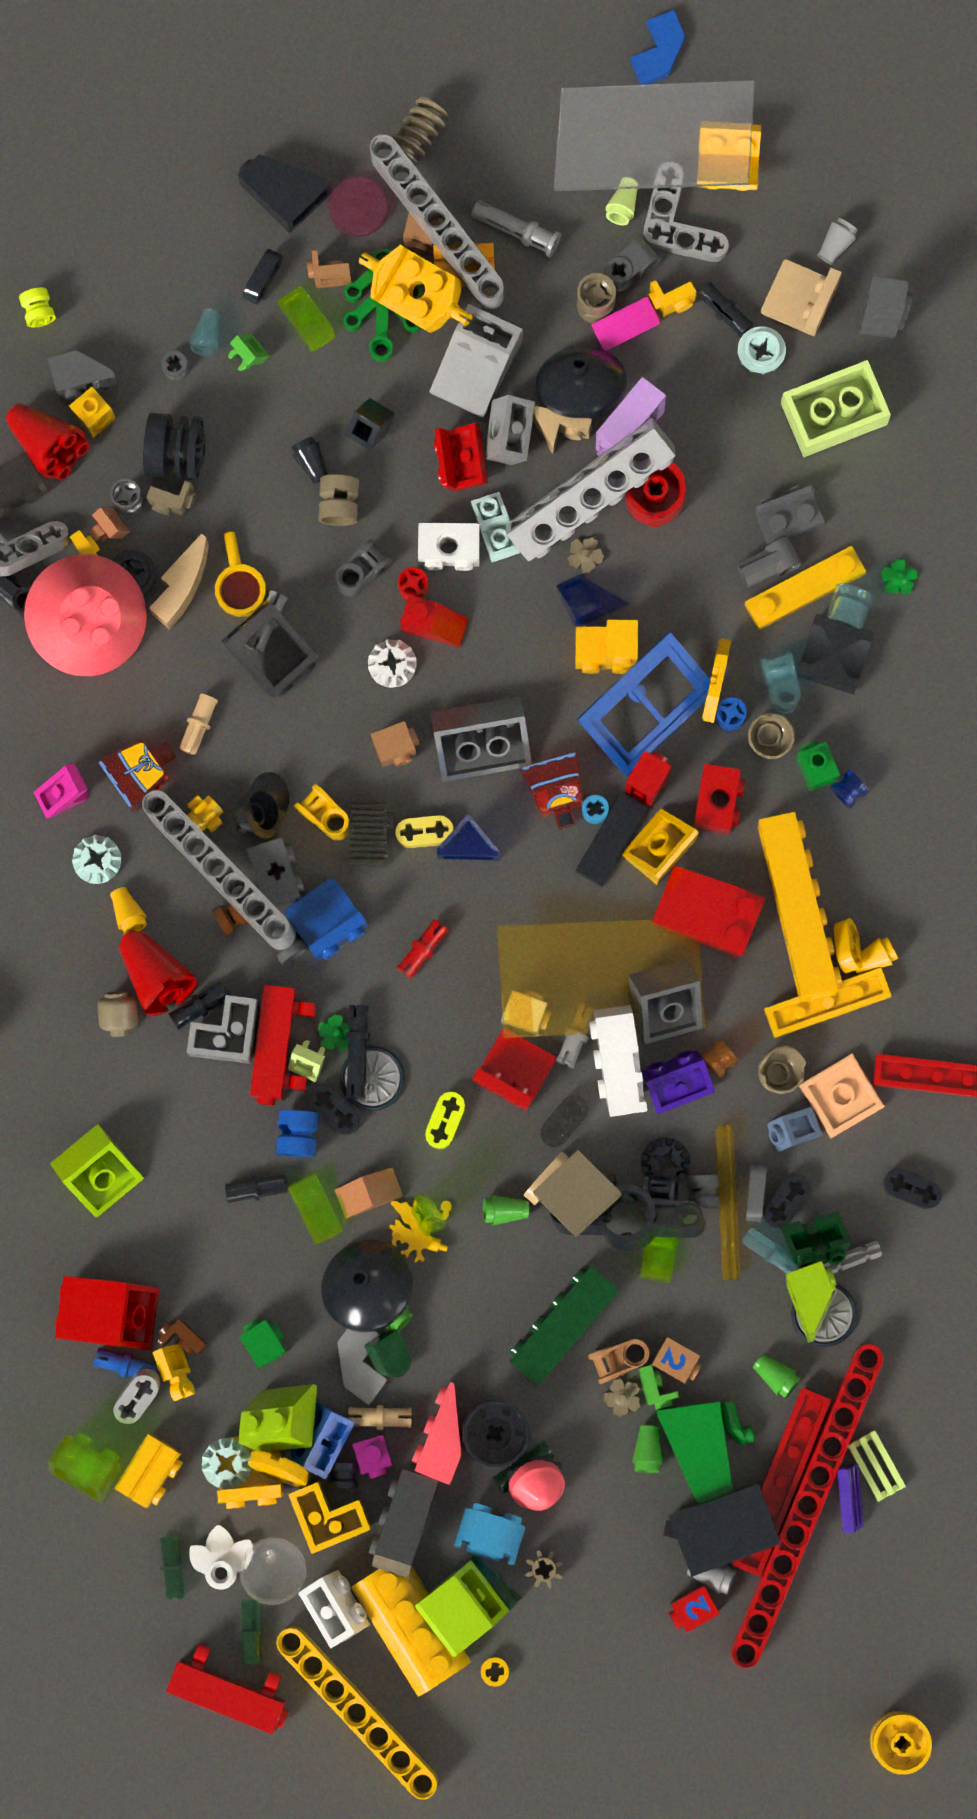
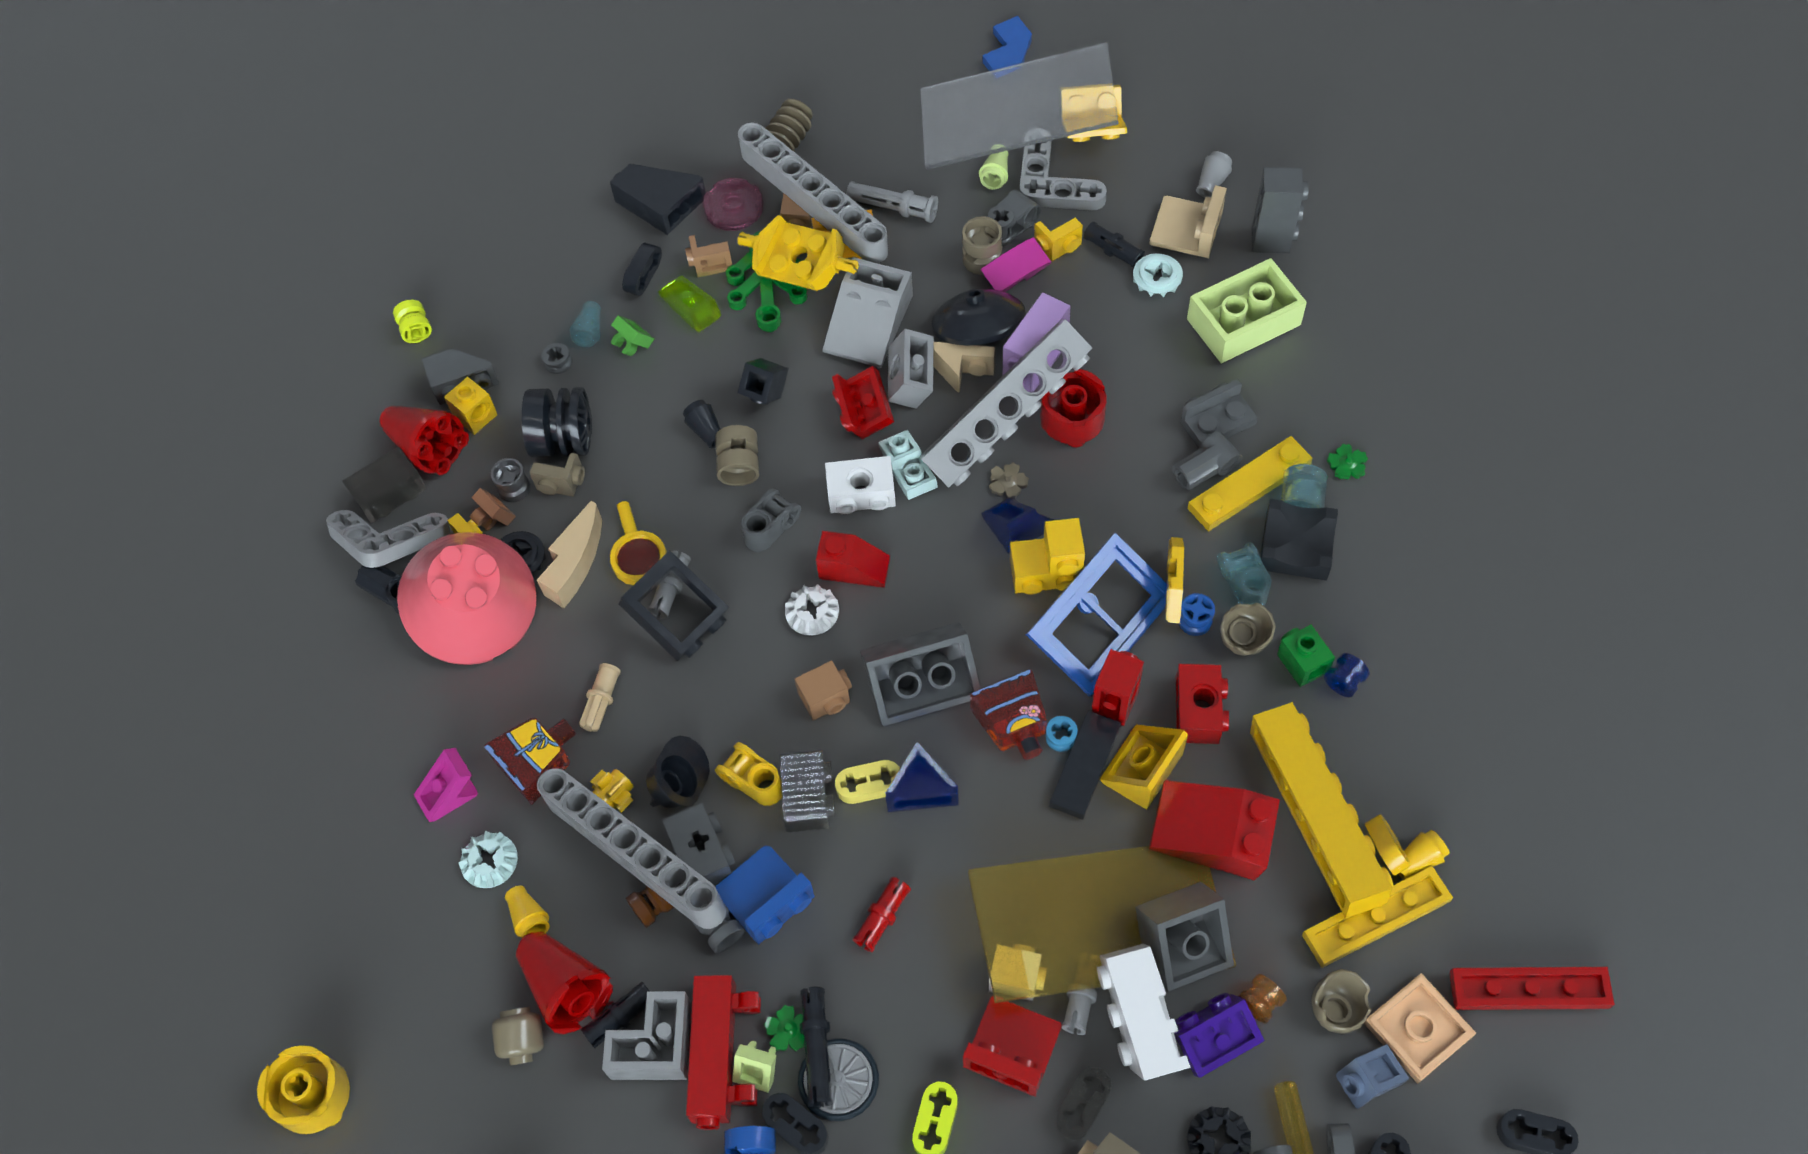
camera: 10 degrees left, 20 degrees down
(410, 579) = (826, 519): red wheel -> none

